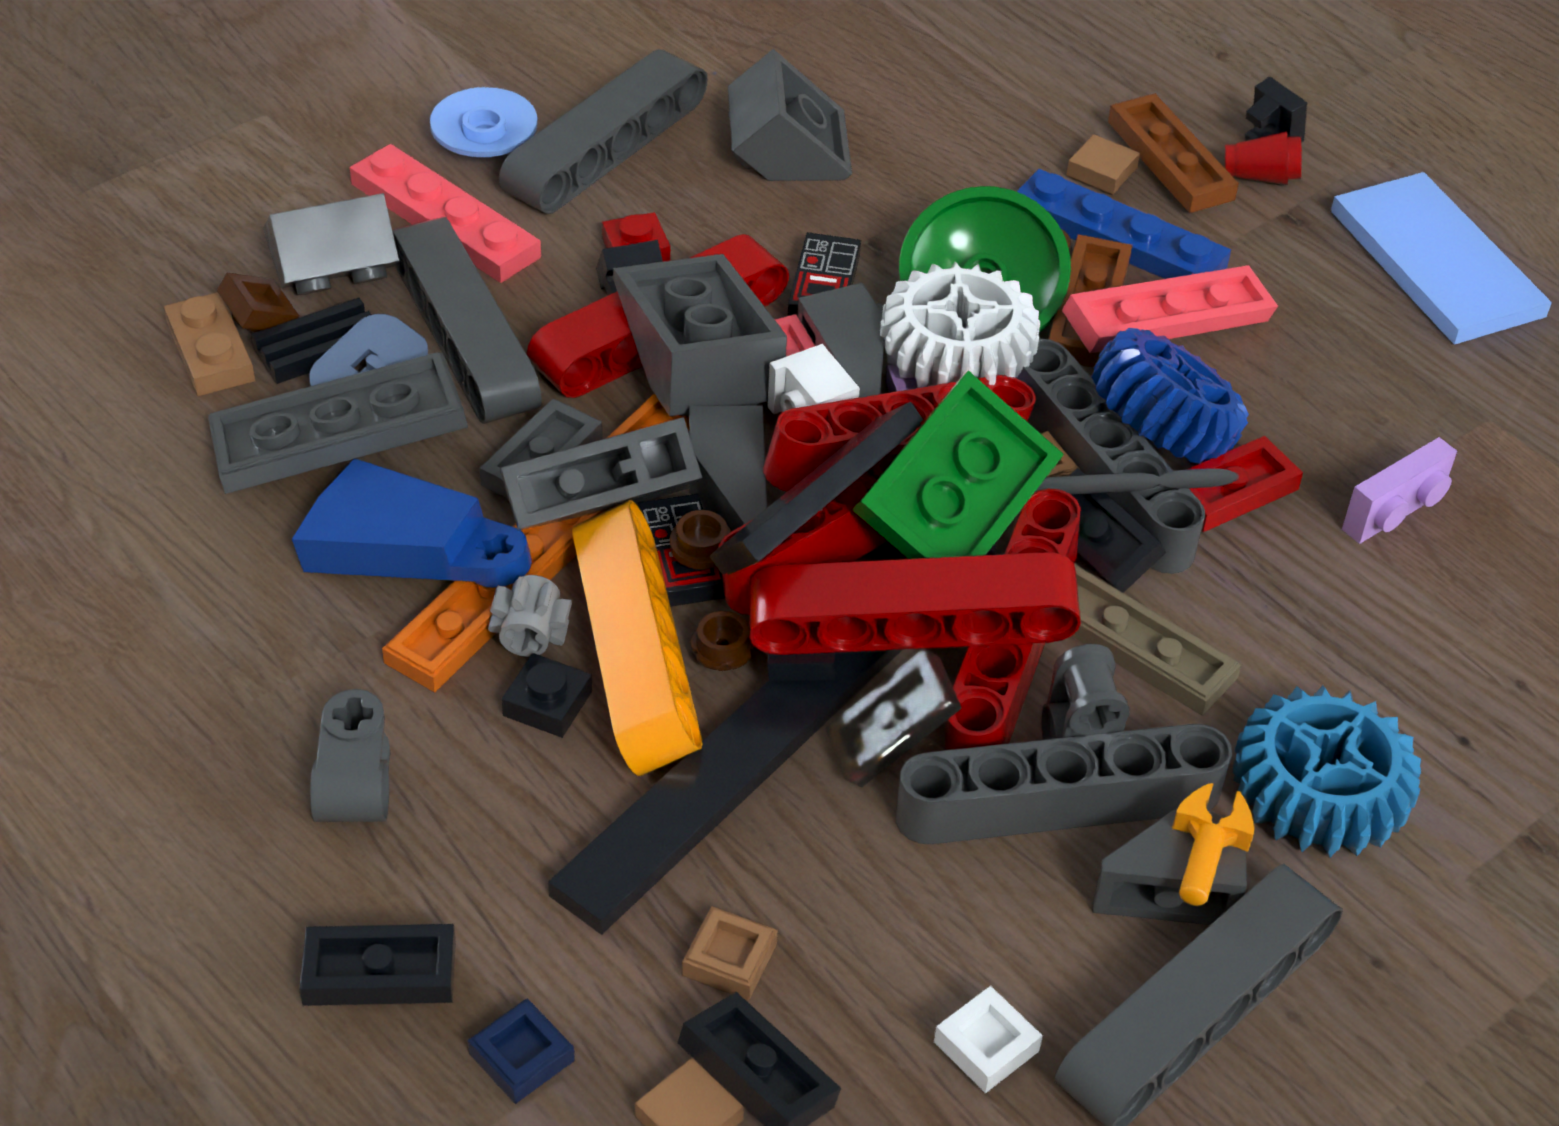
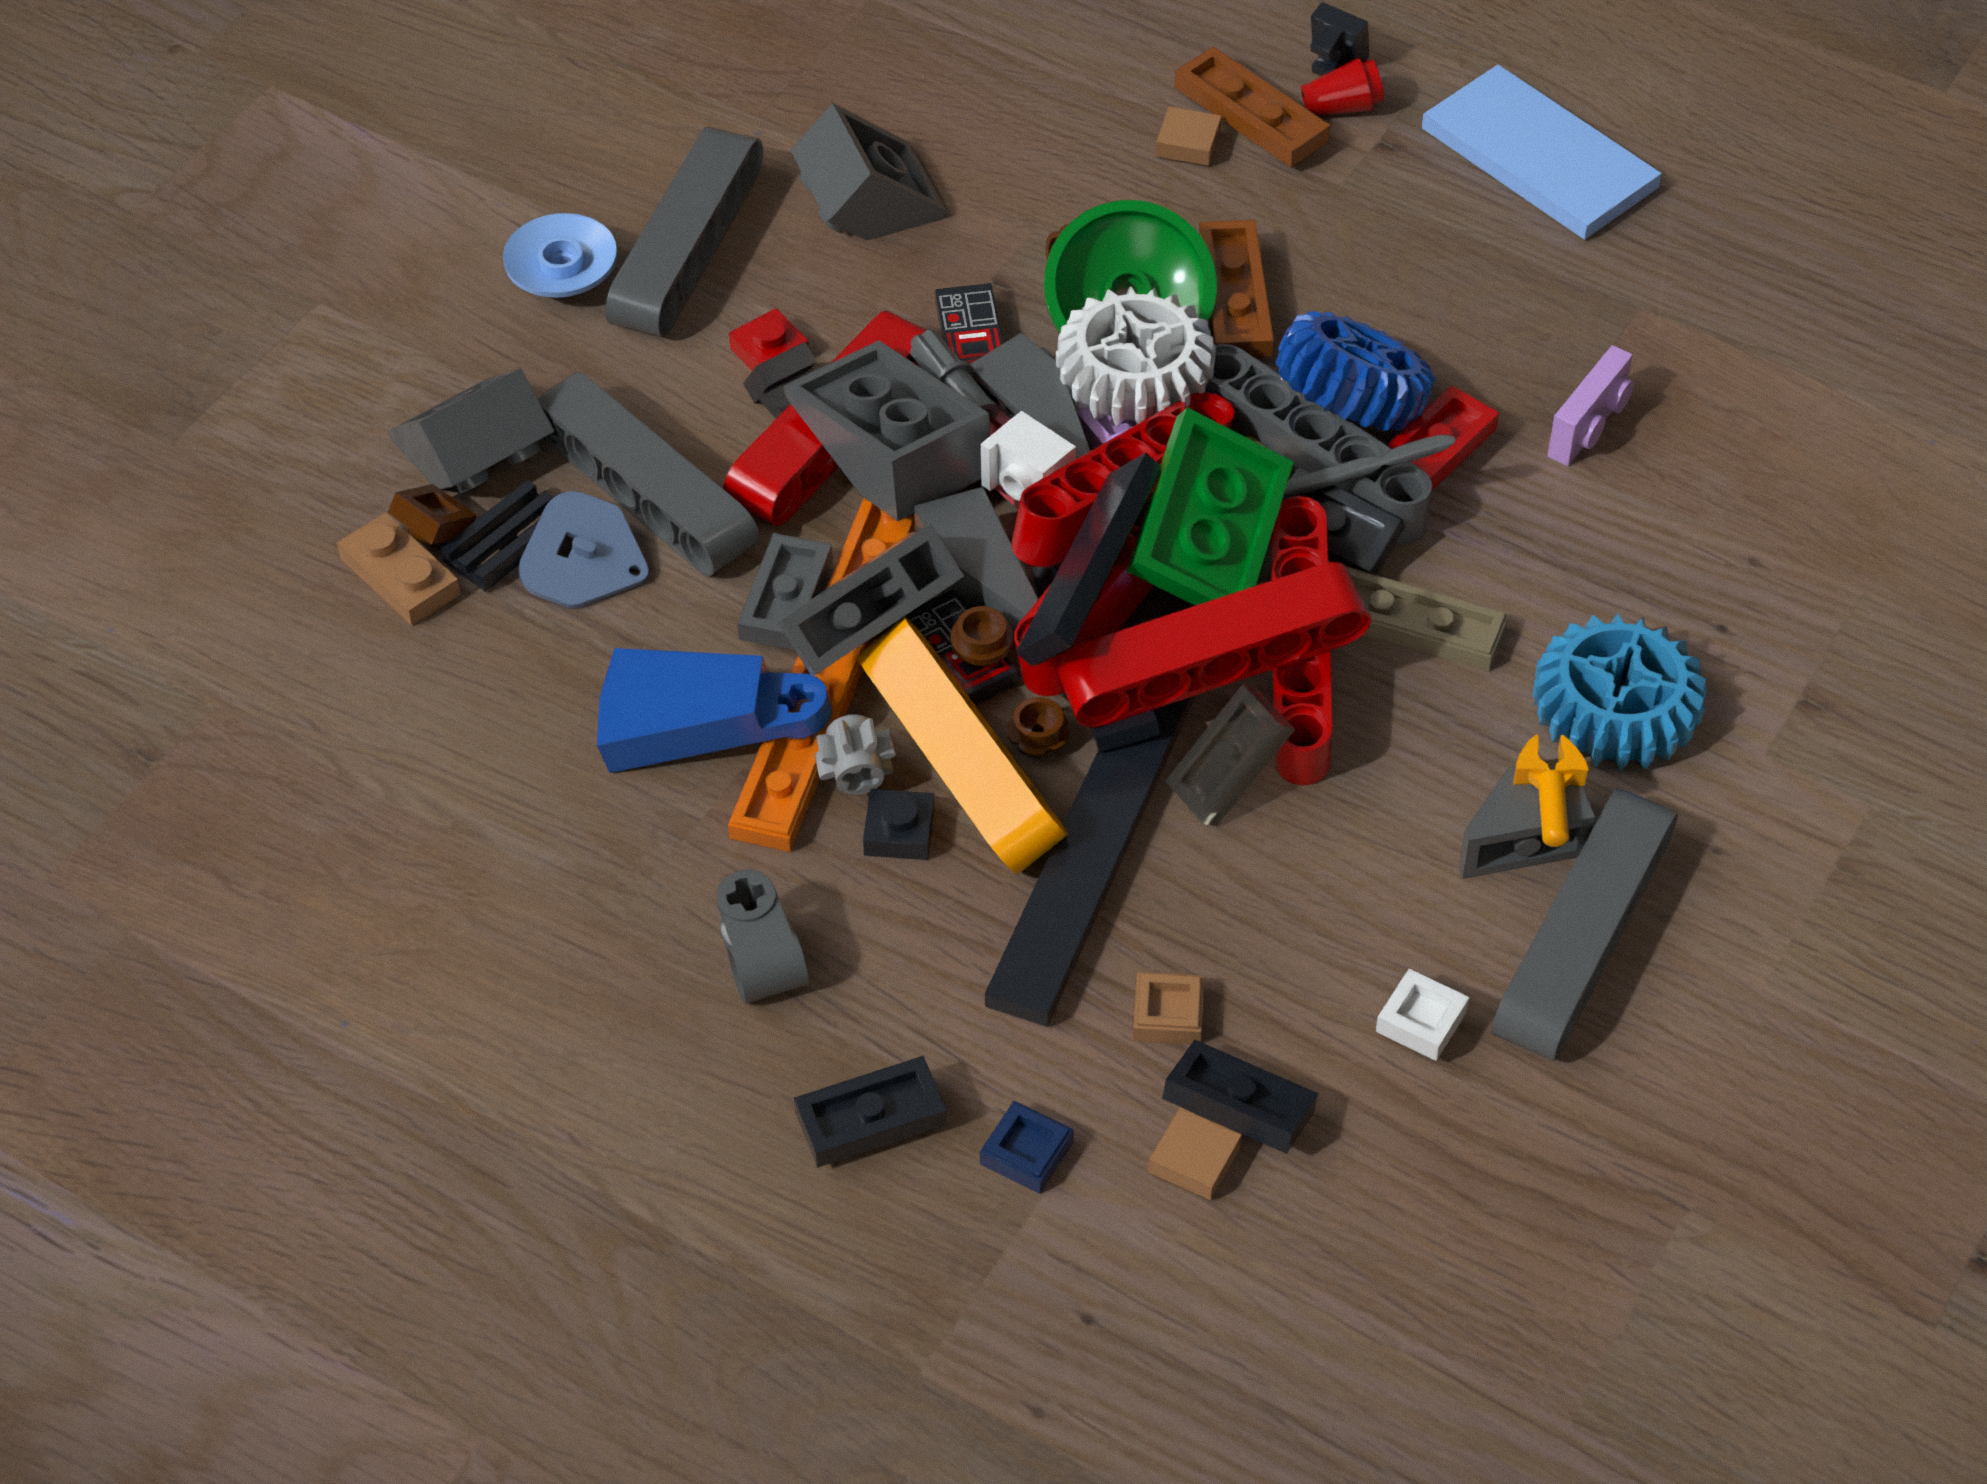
camera: 15 degrees left, 5 degrees up
(335, 422) = (576, 616): dark grey tile -> none
(422, 195) = (549, 356): coral plate -> none
(780, 300) = (939, 360): none -> dark grey axle
(1058, 783) = (1395, 771): dark grey beam -> none
(1083, 695) = (1394, 697): dark grey piece -> none
(1156, 243) = (1200, 196): blue plate -> none
(1171, 306) = (1317, 278): coral plate -> none

